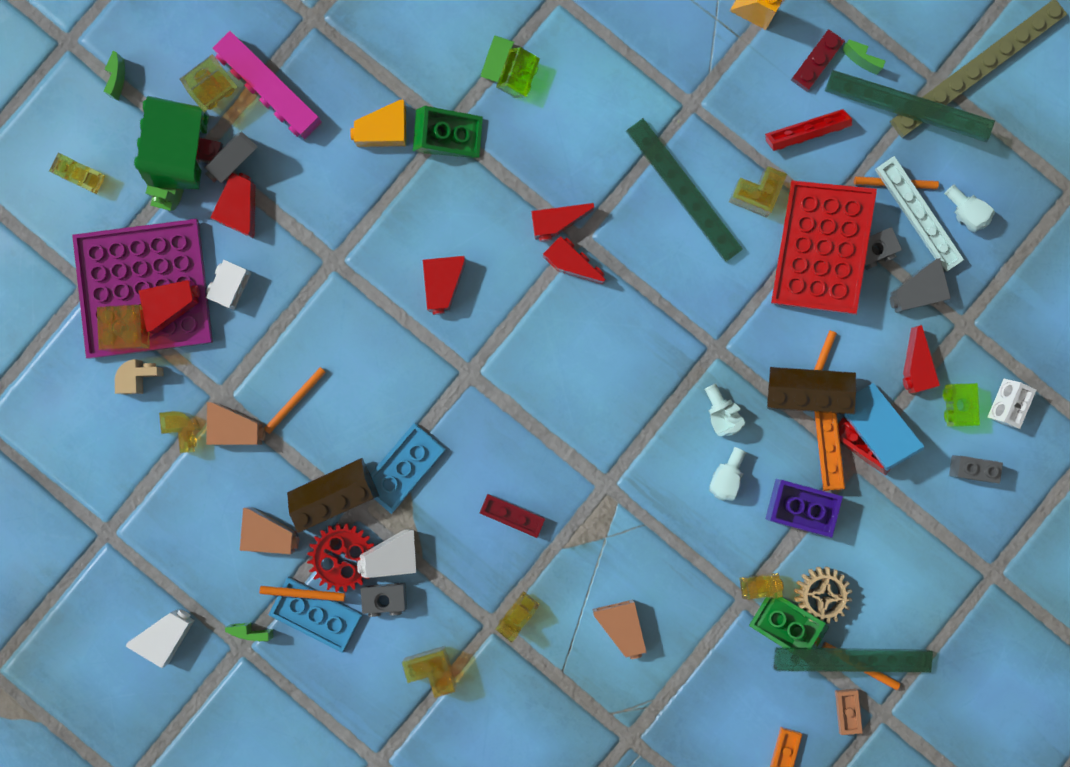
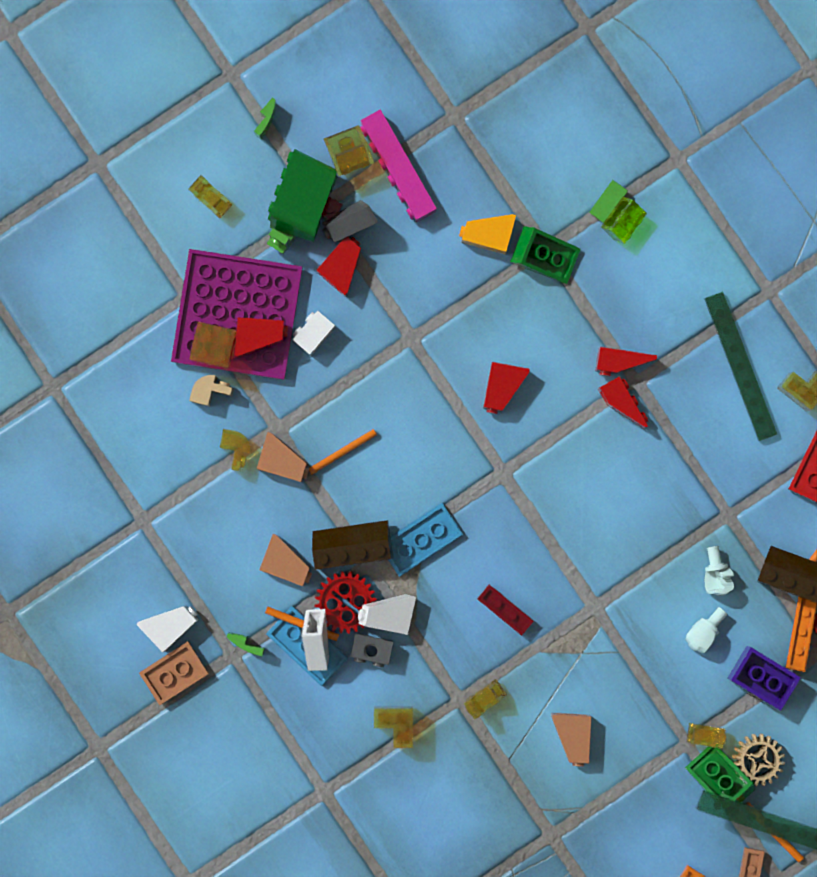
camera: 15 degrees right, 0 degrees up
(182, 685) = (173, 673): none -> nougat plate
(318, 607) = (316, 640): none -> white slope

